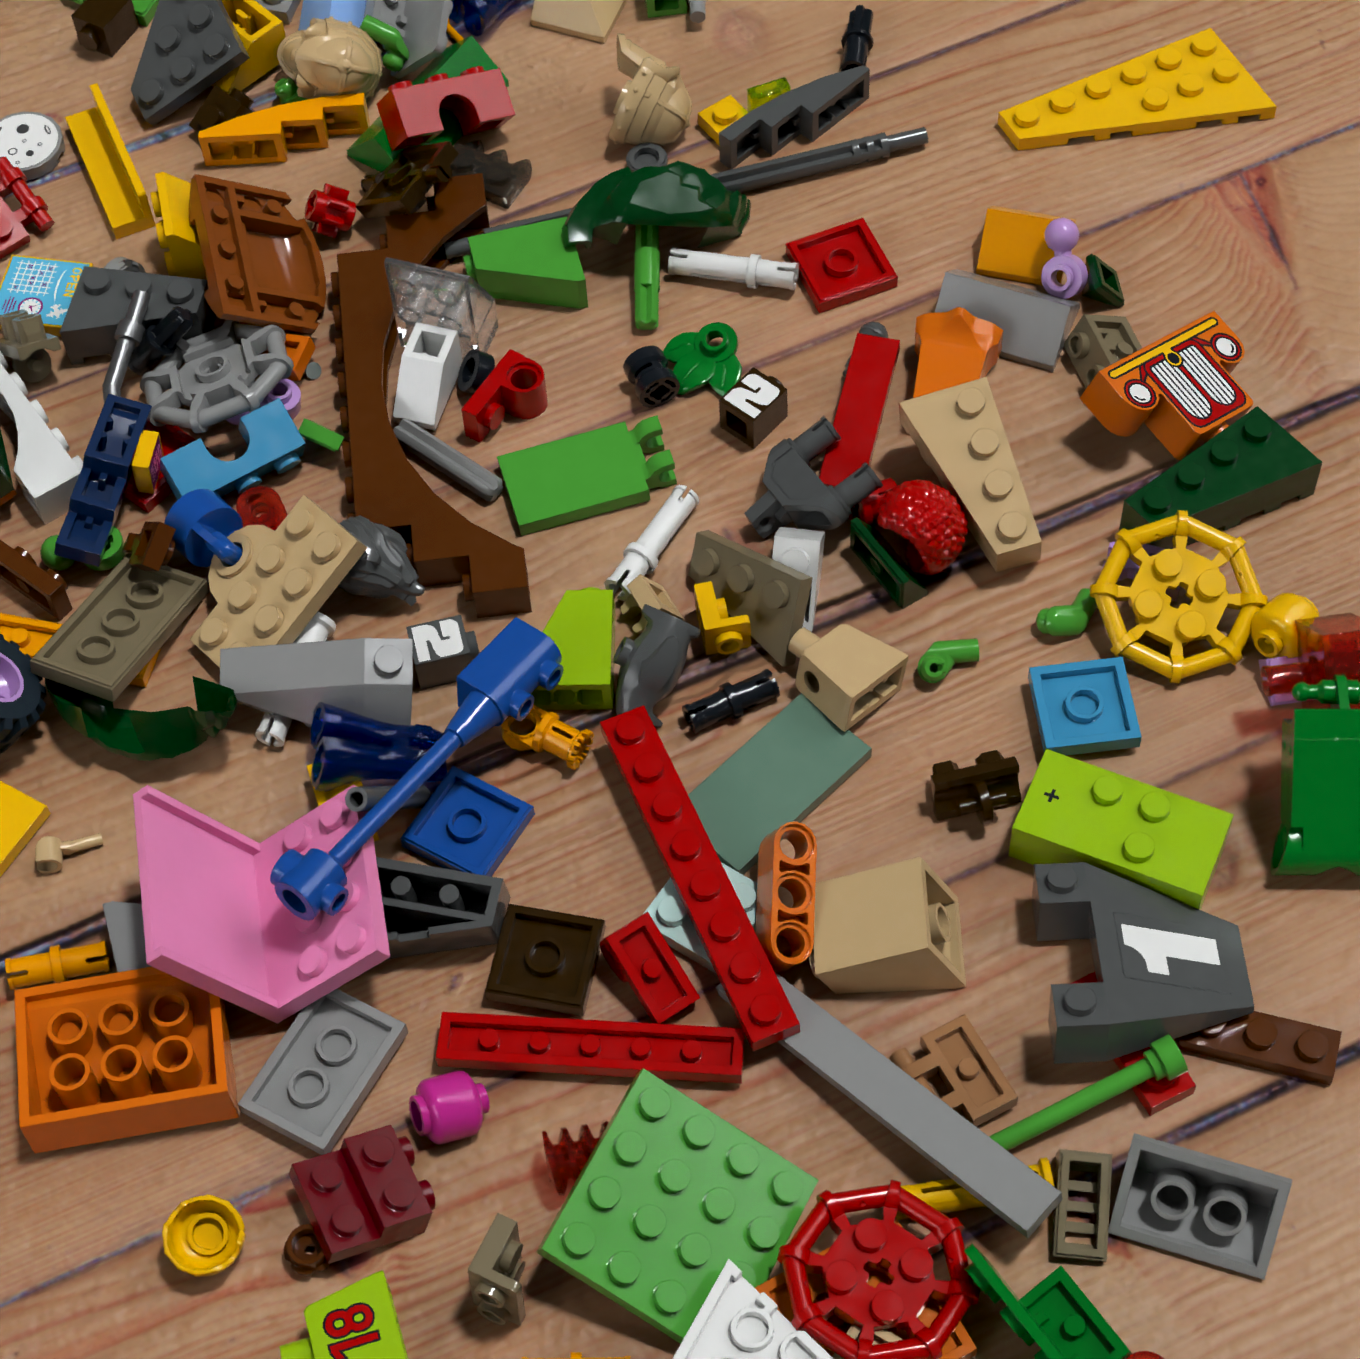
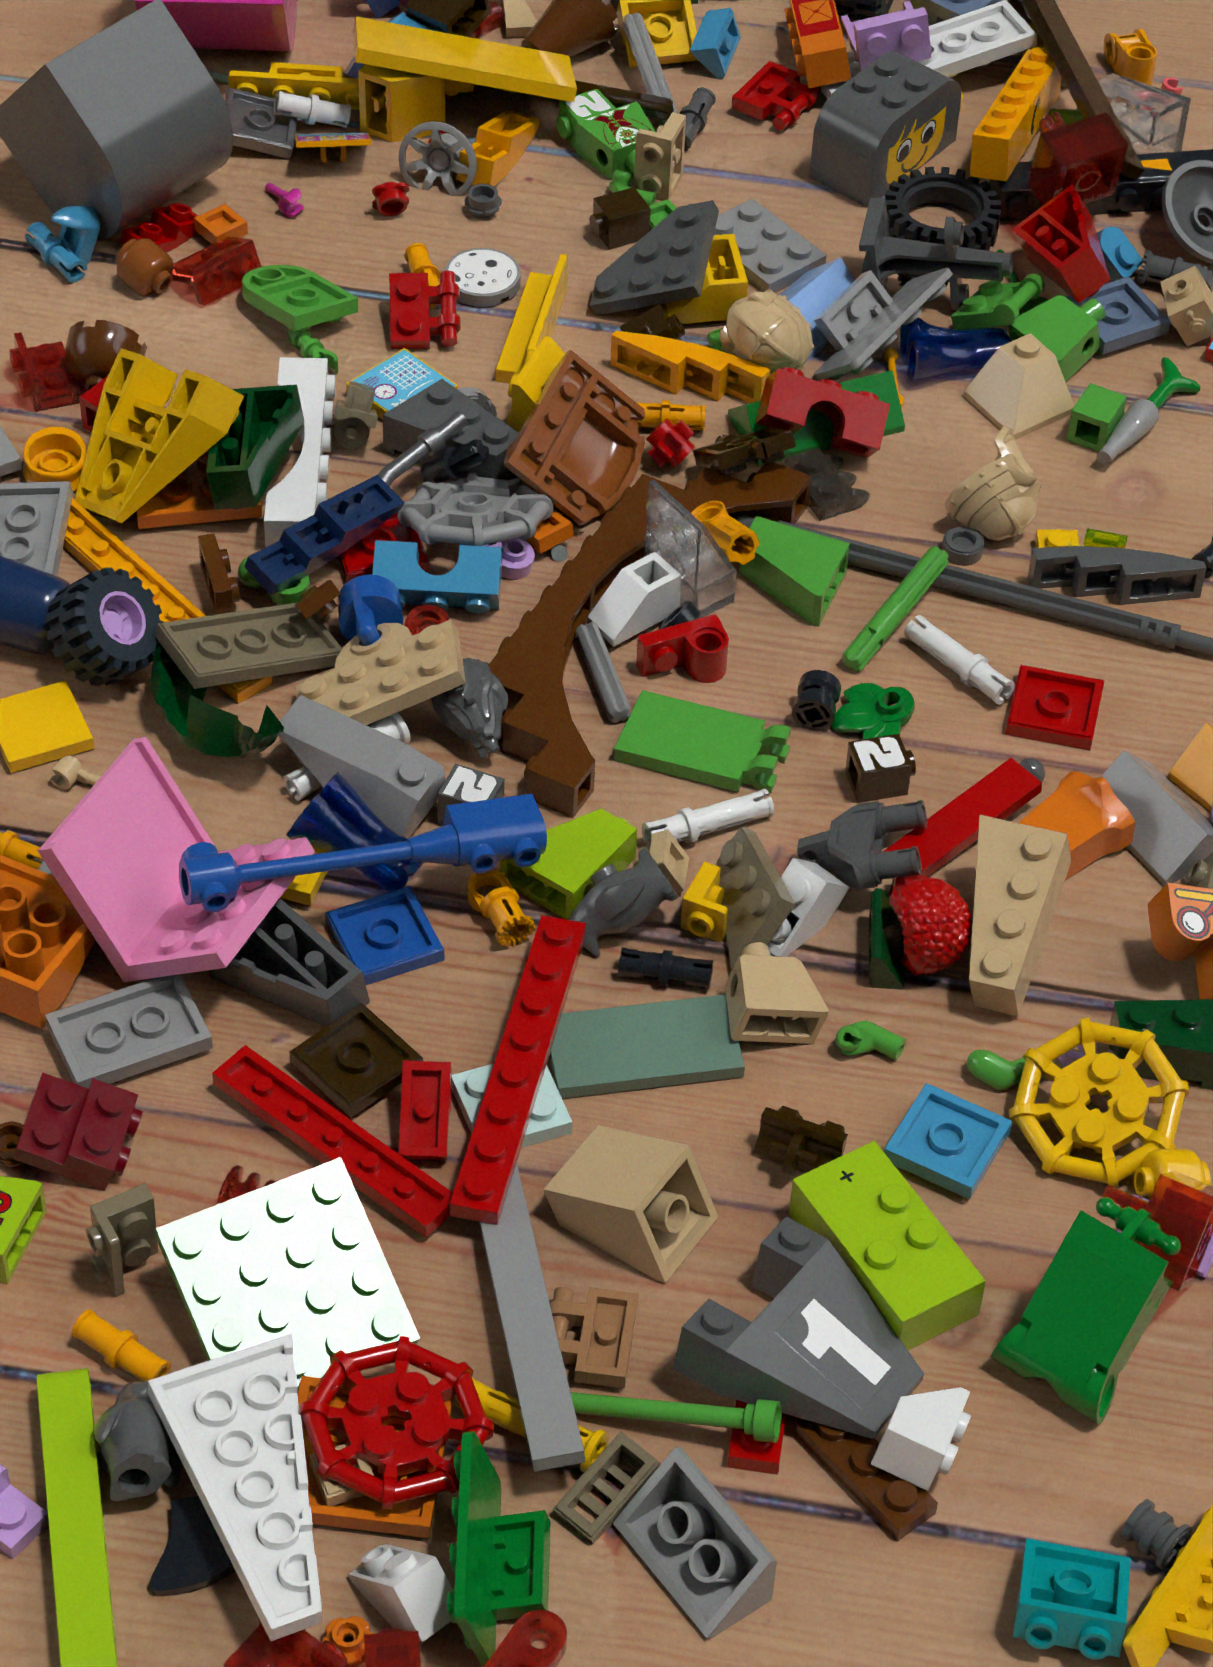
camera: 30 degrees right, 10 degrees down
(147, 461) = (363, 541): yellow tile -> none
(302, 184) = (657, 412): none -> light orange pin
(321, 435) = (517, 595): bright green tile -> none
(365, 797) = (344, 879): dark grey piece -> none
(391, 41) = (826, 342): bright green arm -> none
(448, 1107) = (192, 1112): dark pink head -> none
(480, 266) = (732, 536): none -> light orange piece
(657, 196) = (937, 567): dark green animal -> none
(799, 878) = (577, 1100): orange beam -> none
(1295, 986) = (920, 1435): none -> white slope

